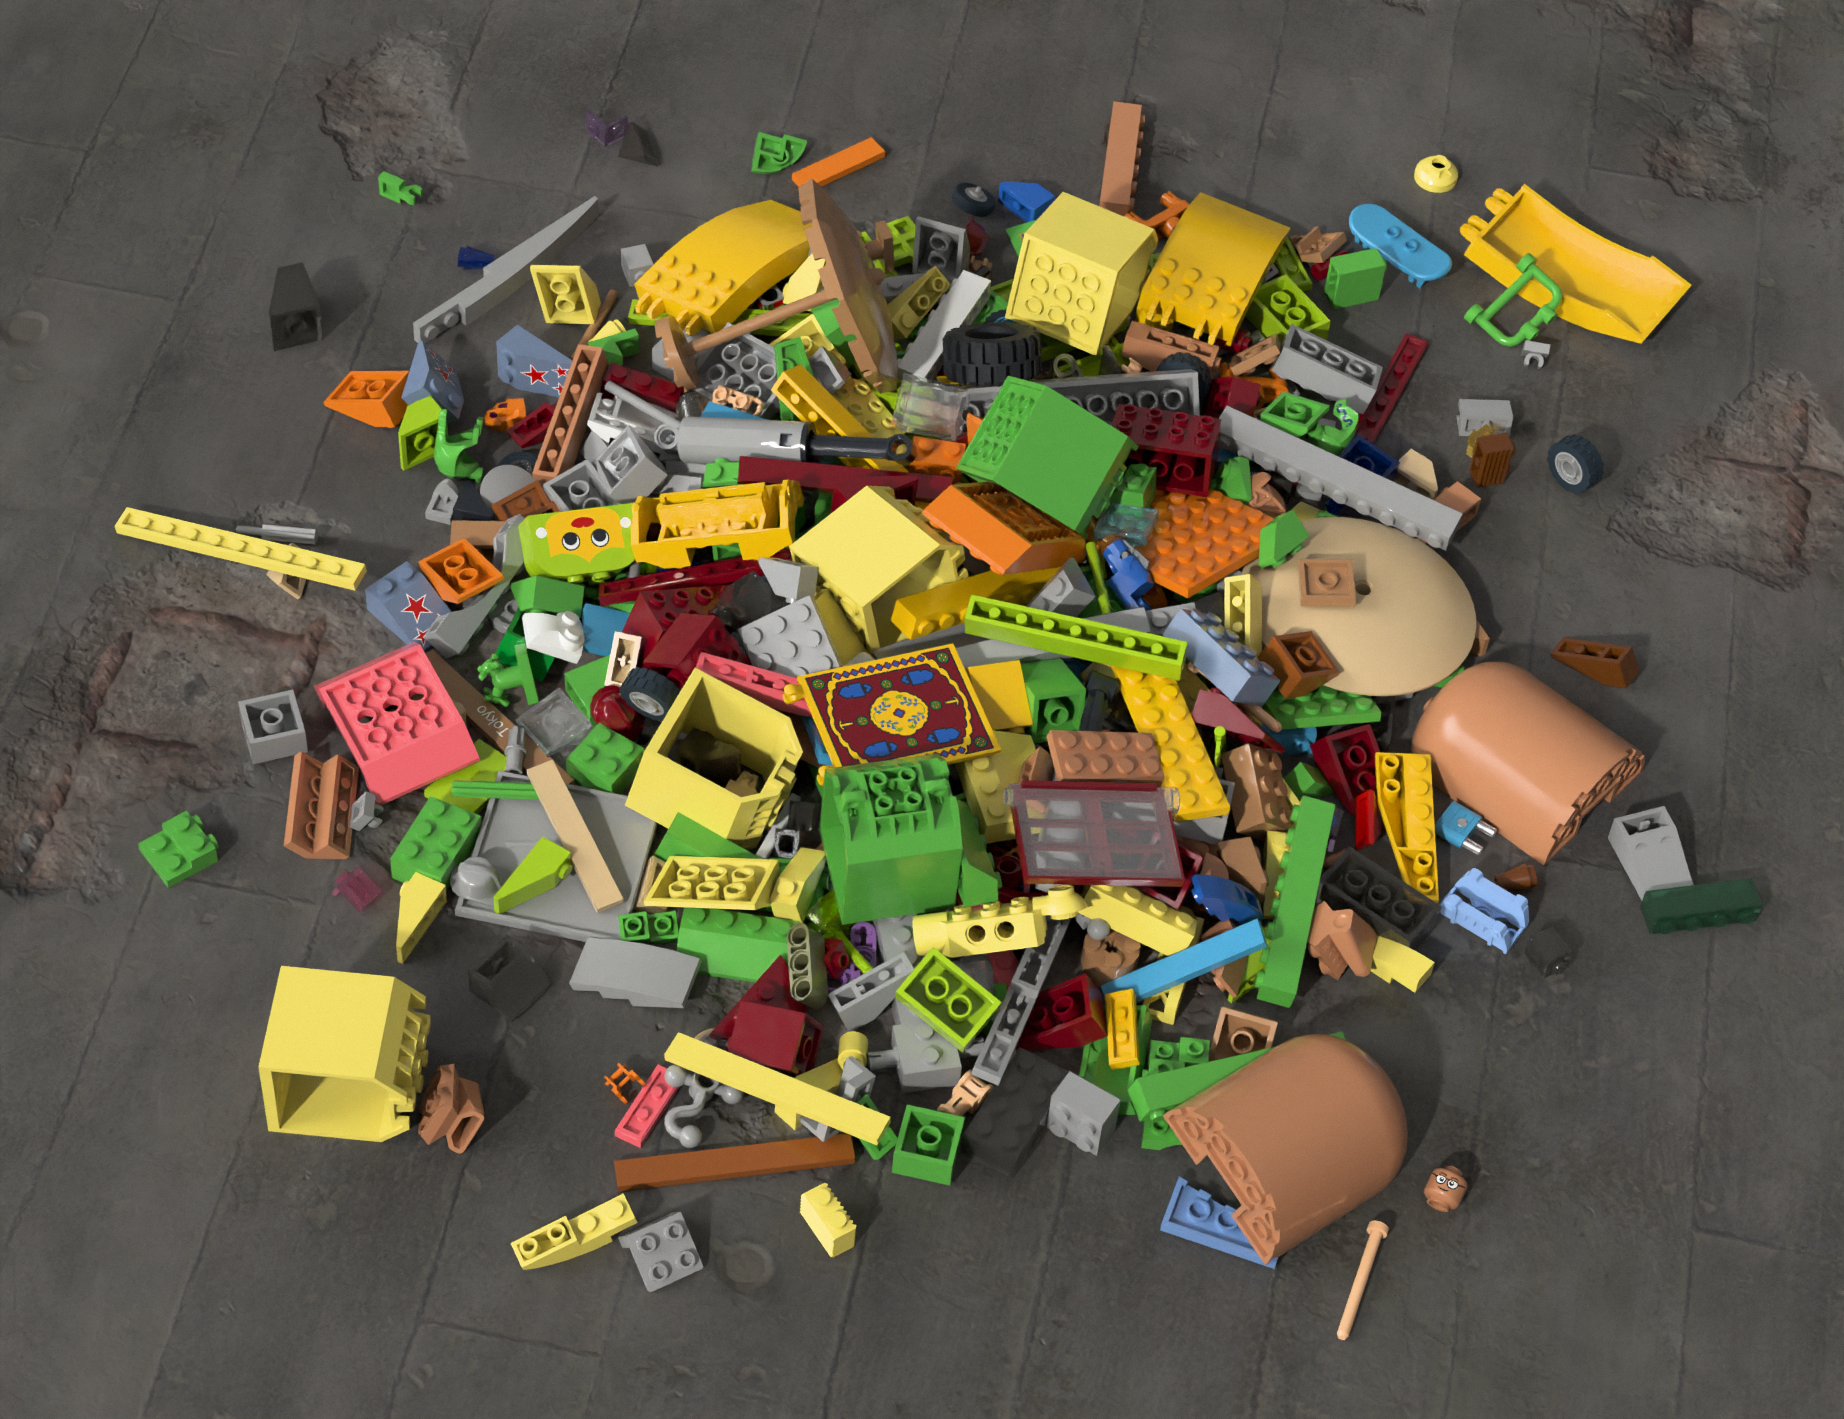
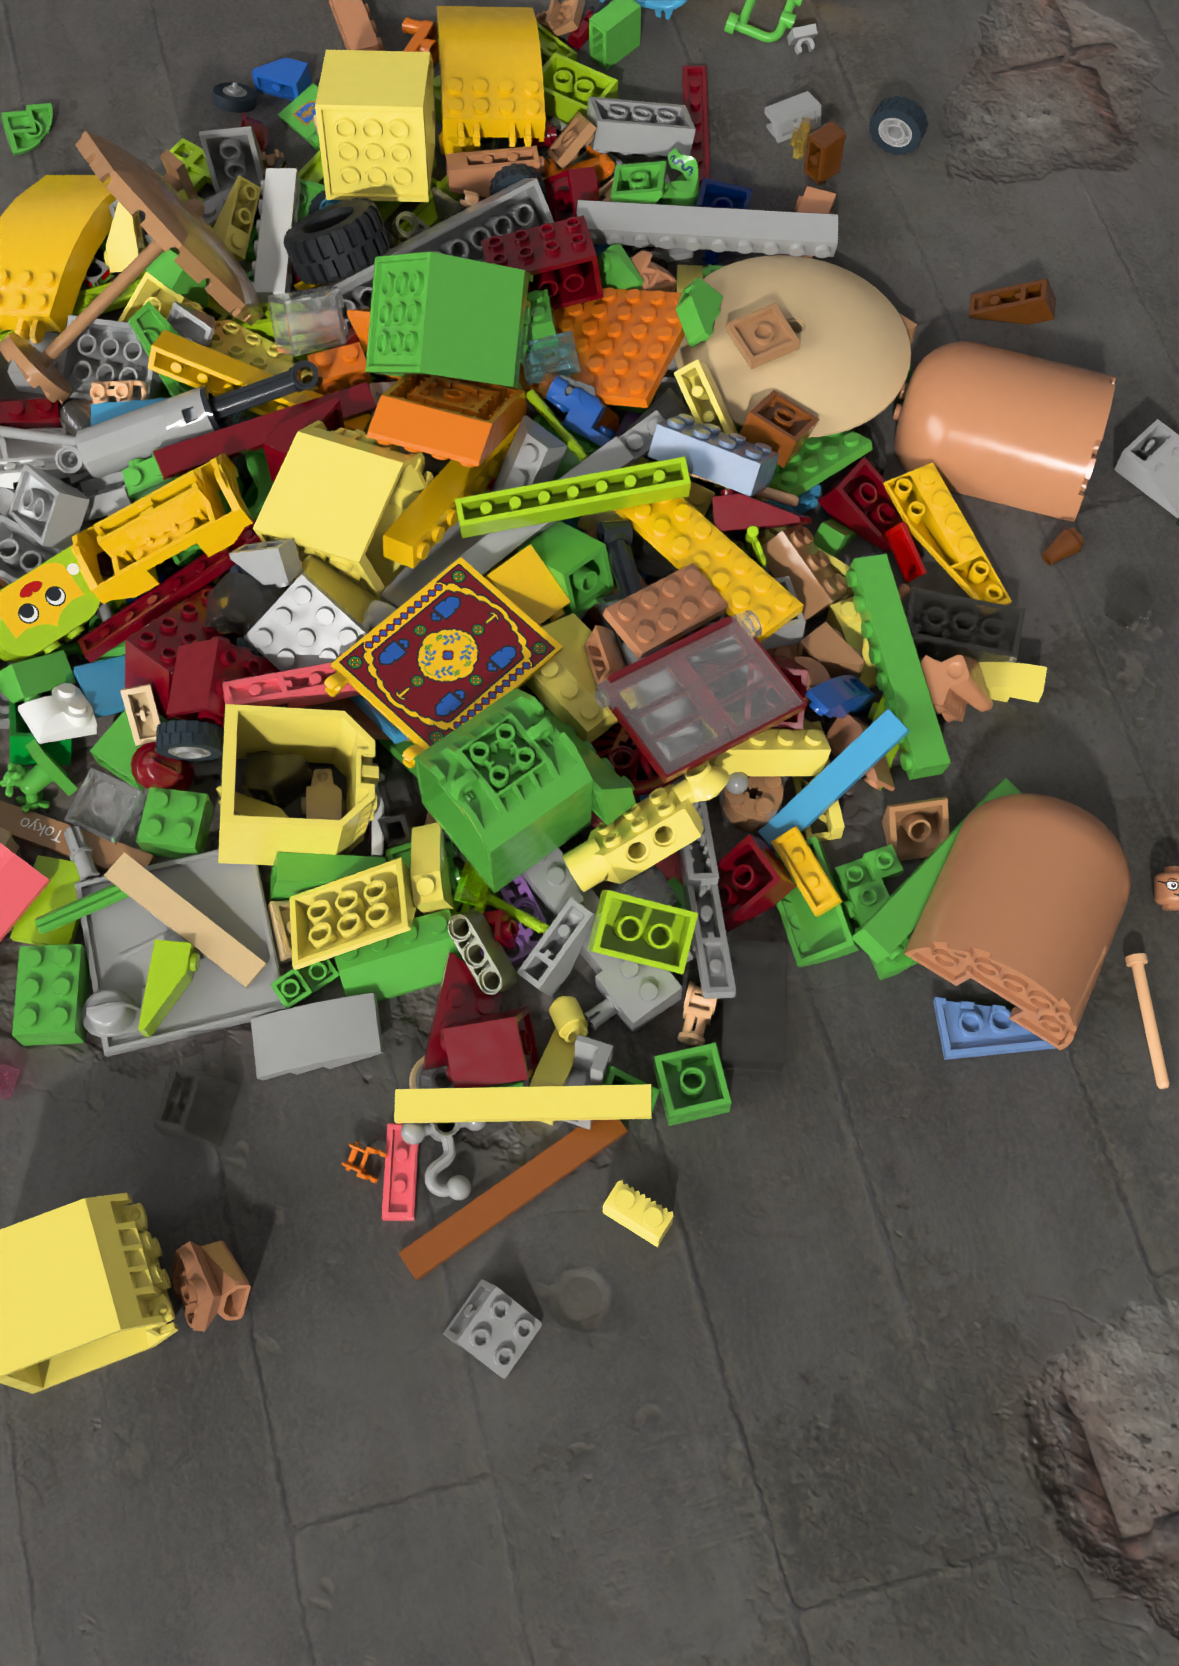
camera: 20 degrees left, 15 degrees up
(419, 906) = (65, 1069): light yellow slope -> none
(575, 1237) = (400, 1359): light yellow slope -> none
(841, 163) = (92, 114): orange tile -> none
(1083, 1113) = (819, 979): light grey brick -> none
(1417, 474) = (769, 194): tan slope -> none
(1458, 826) = (984, 517): dark azure piece -> none
(1489, 910) = (1056, 581): light blue piece -> none

